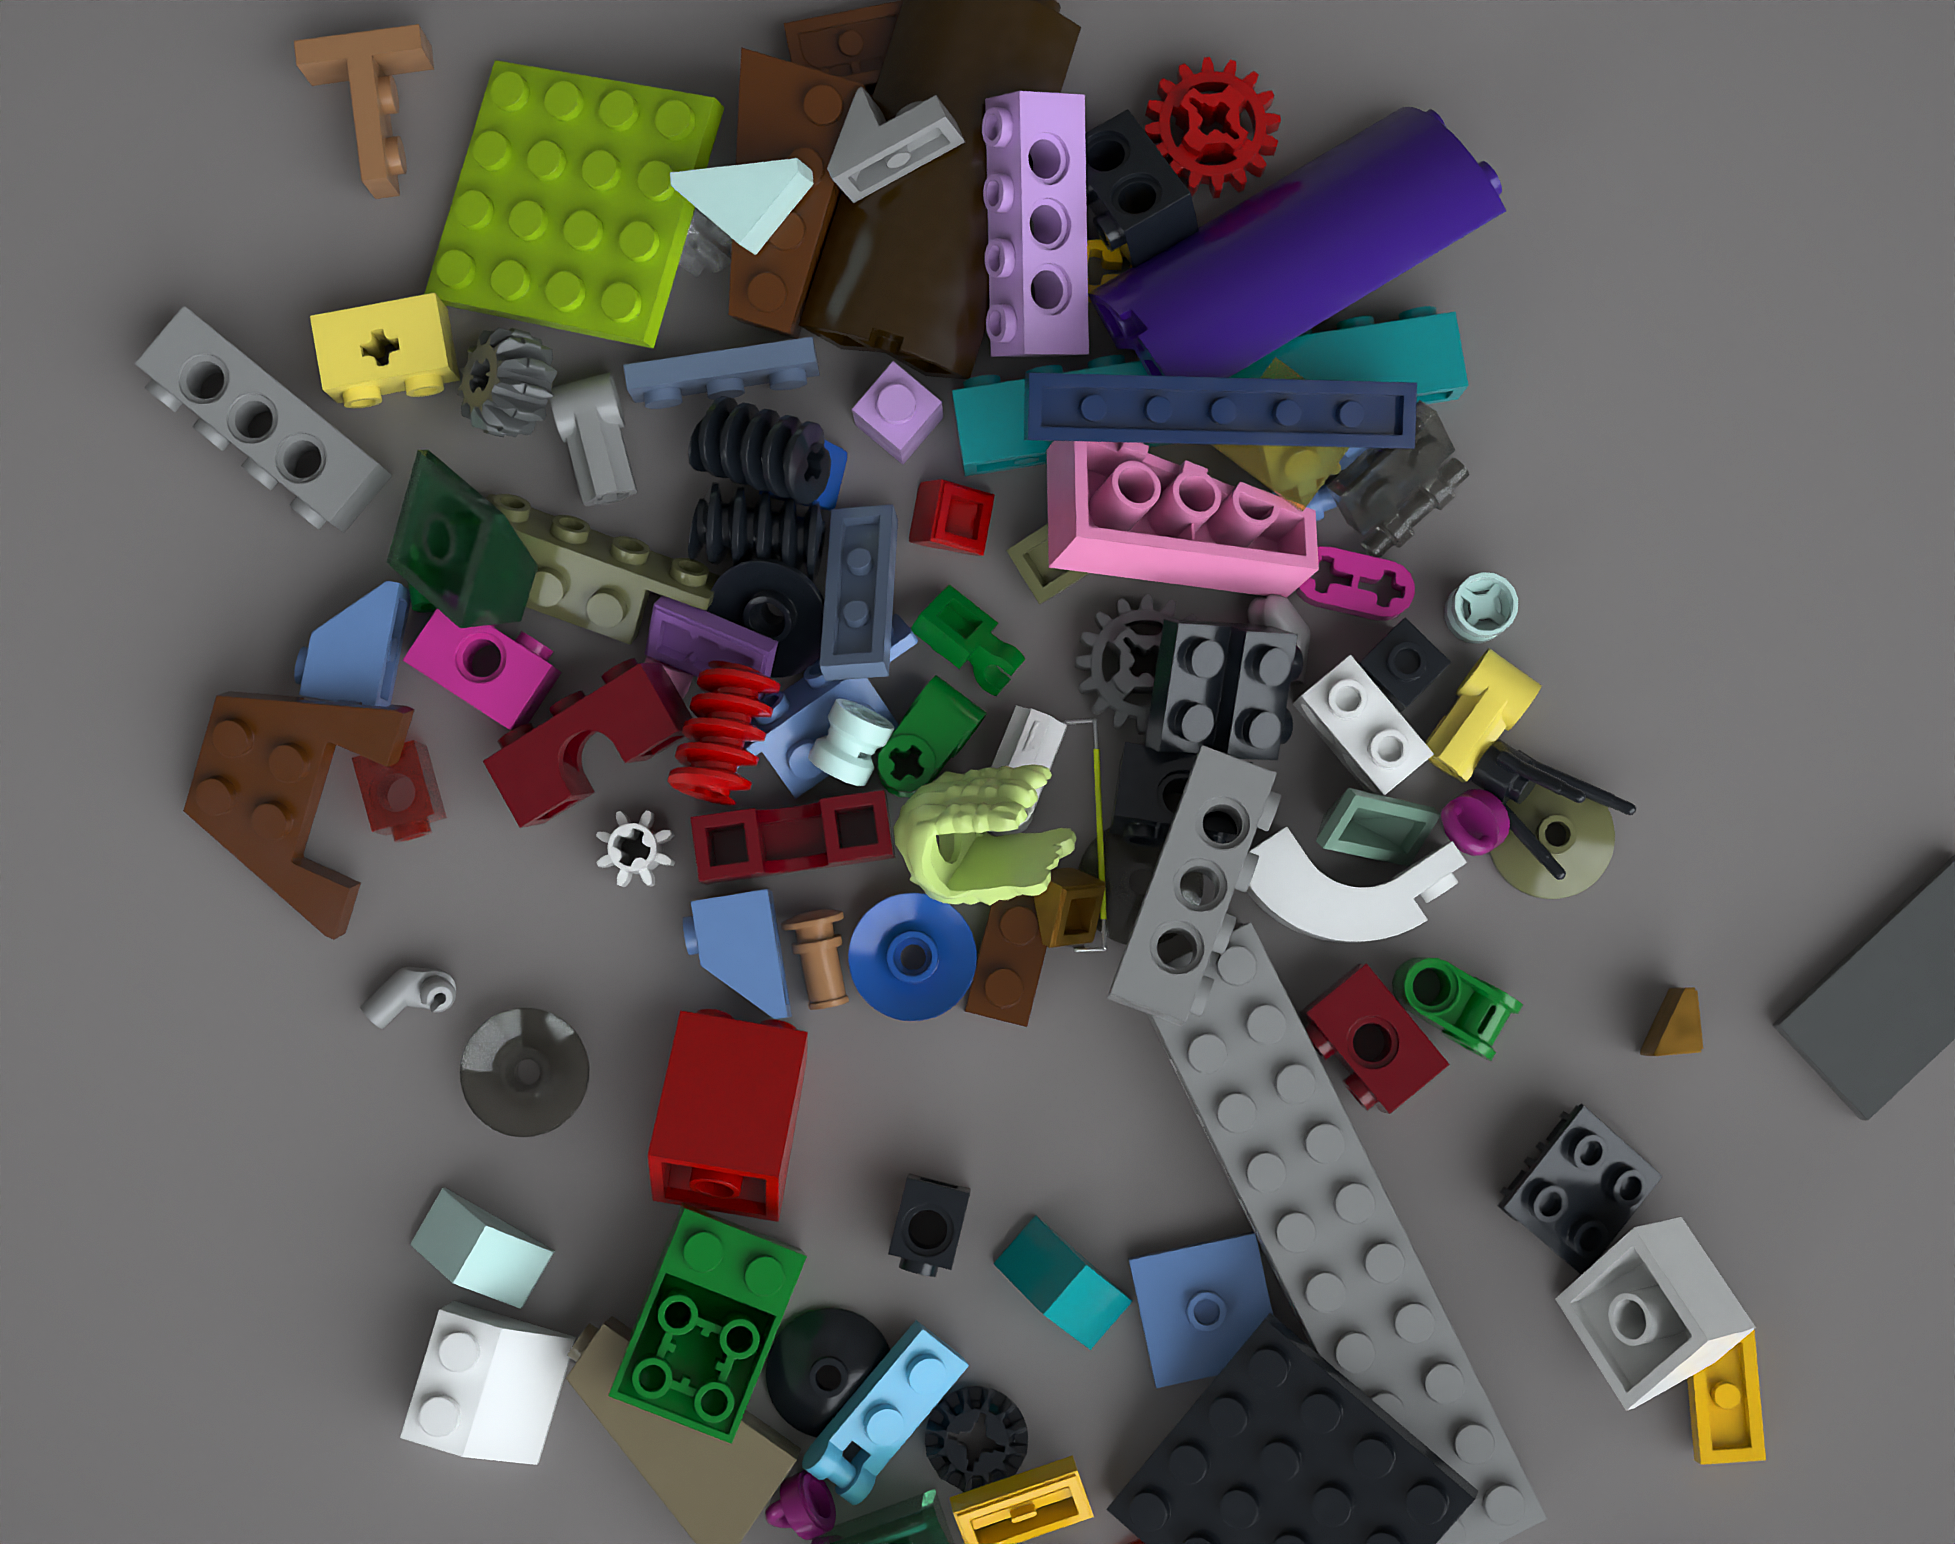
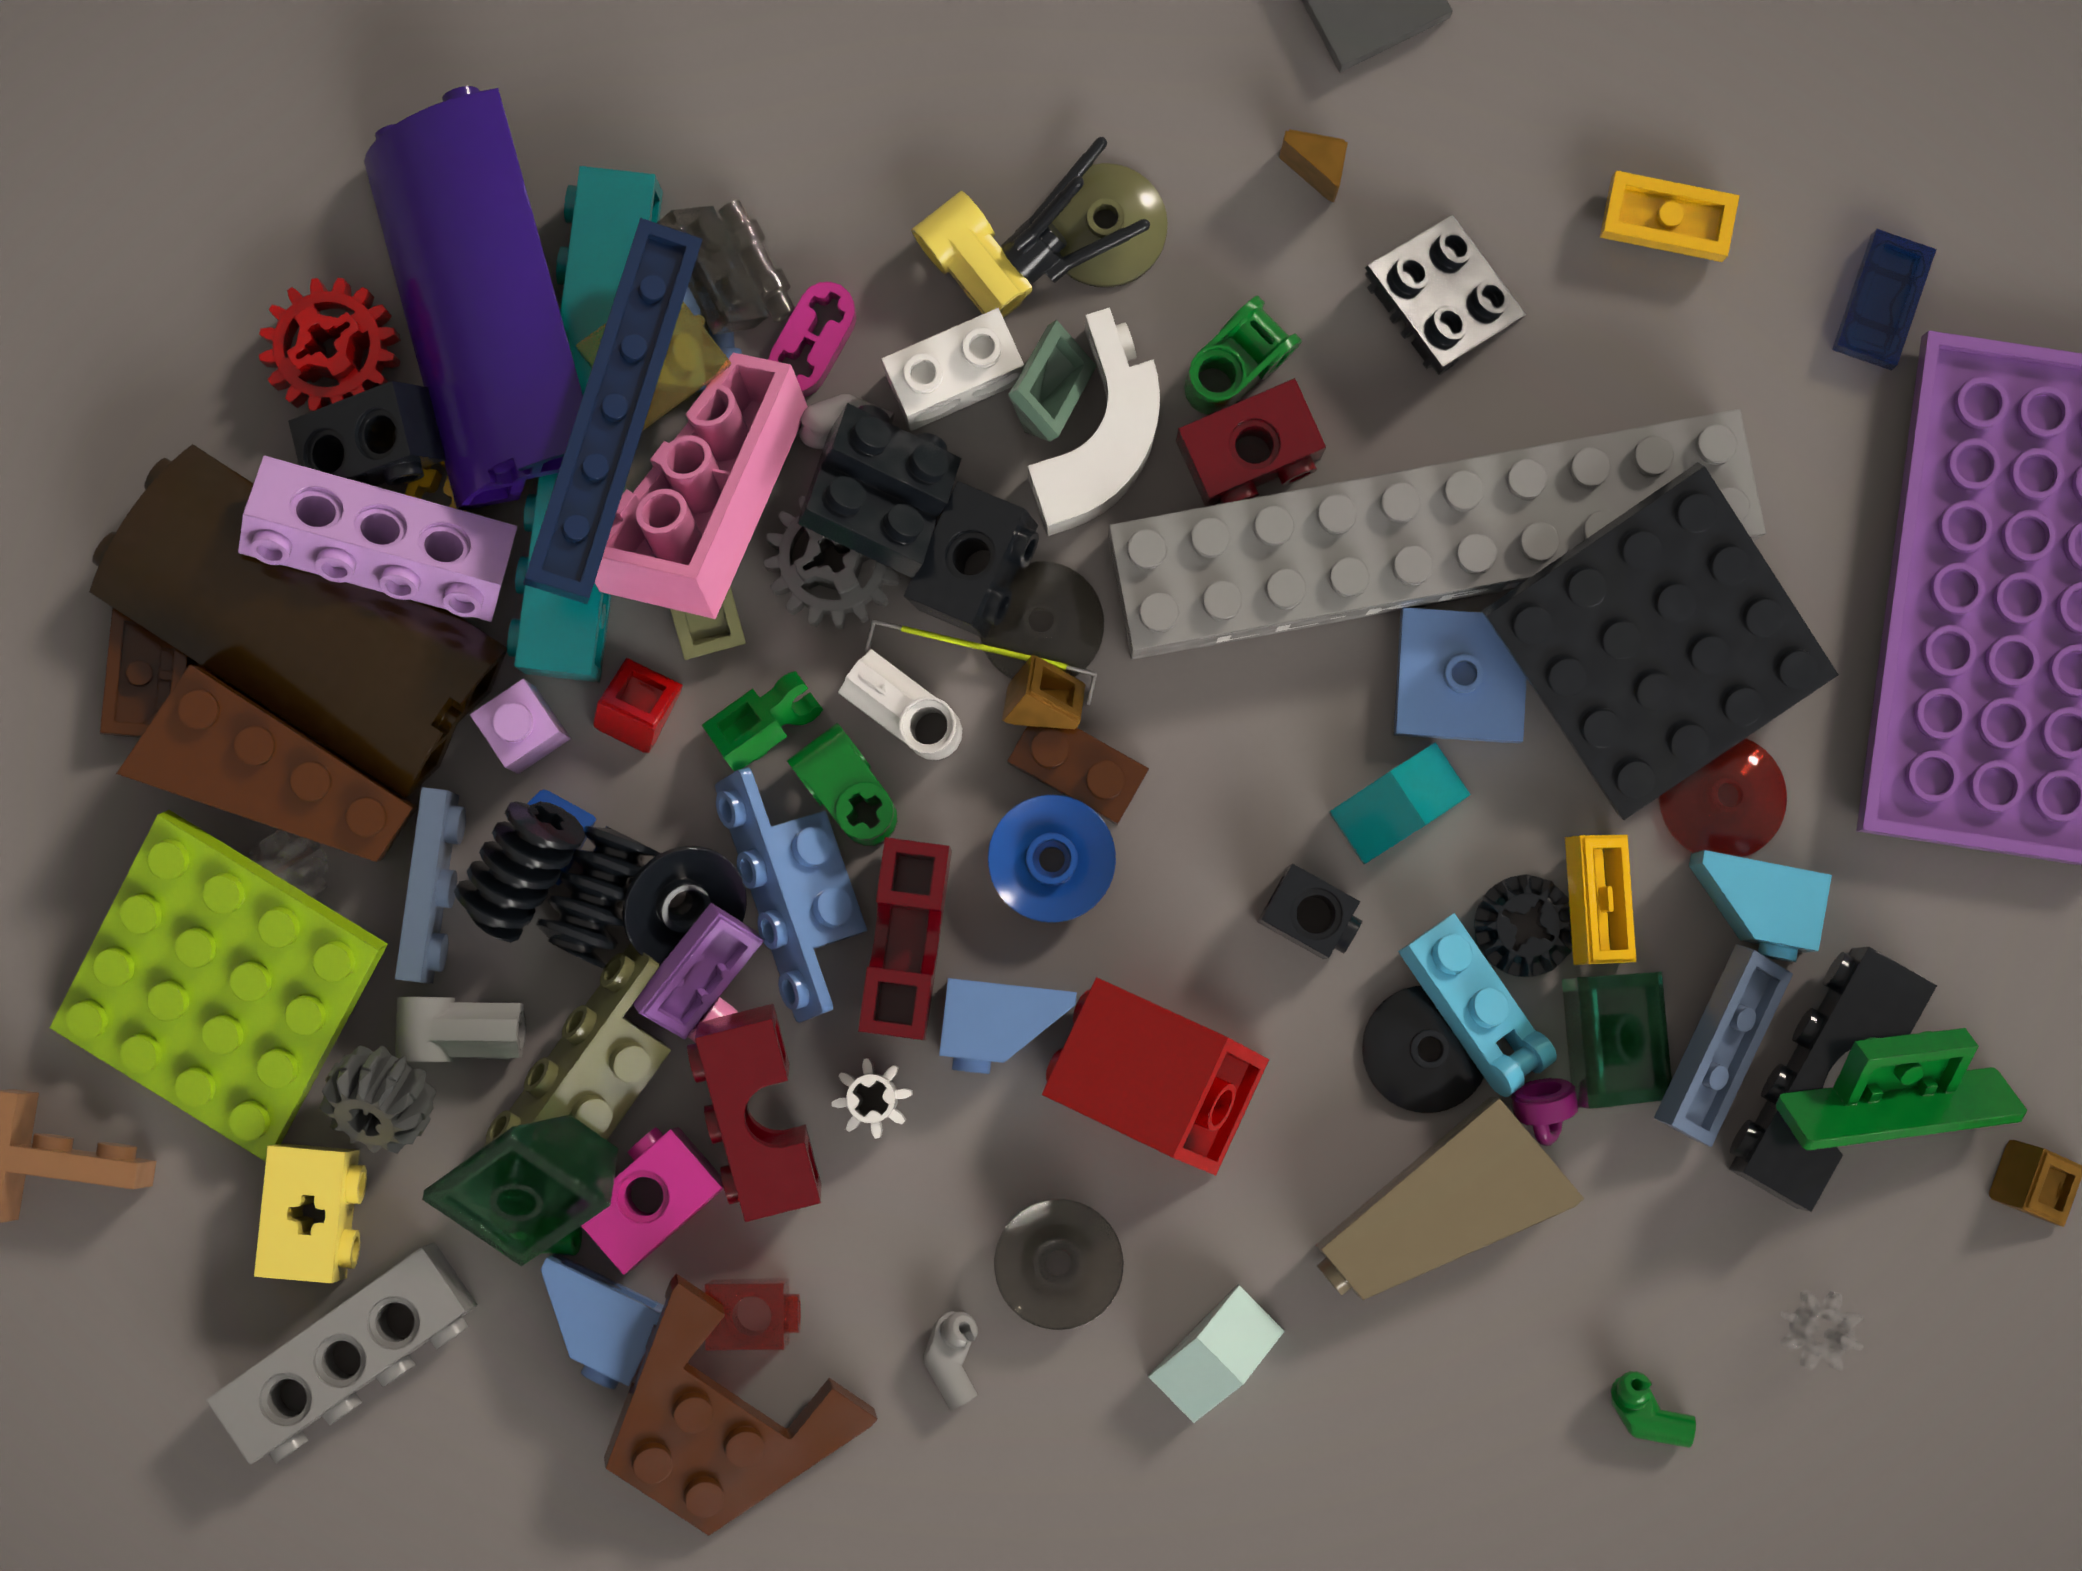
camera: 75 degrees left, 0 degrees up
(487, 1386) = (1350, 1380): white slope -> none
(707, 1323) = (1347, 1148): green slope -> none
(721, 732) = (784, 978): red piece -> none
(746, 198) = (268, 808): light aqua slope -> none
(819, 956) = (1026, 948): medium nougat pin -> none
(850, 742) = (827, 855): light aqua wheel -> none
(859, 593) = (686, 810): sand blue plate -> none
(879, 152) = (262, 670): light grey slope -> none
(969, 861) = (963, 792): yellowish green piece -> none
(1213, 785) = (969, 522): light grey brick -> none
(1404, 664) = (903, 312): black brick -> none
(1475, 822) = (1072, 289): magenta tile -> none
(1490, 599) = (866, 214): light aqua wheel -> none
(1654, 1311) = (1575, 256): white slope -> none

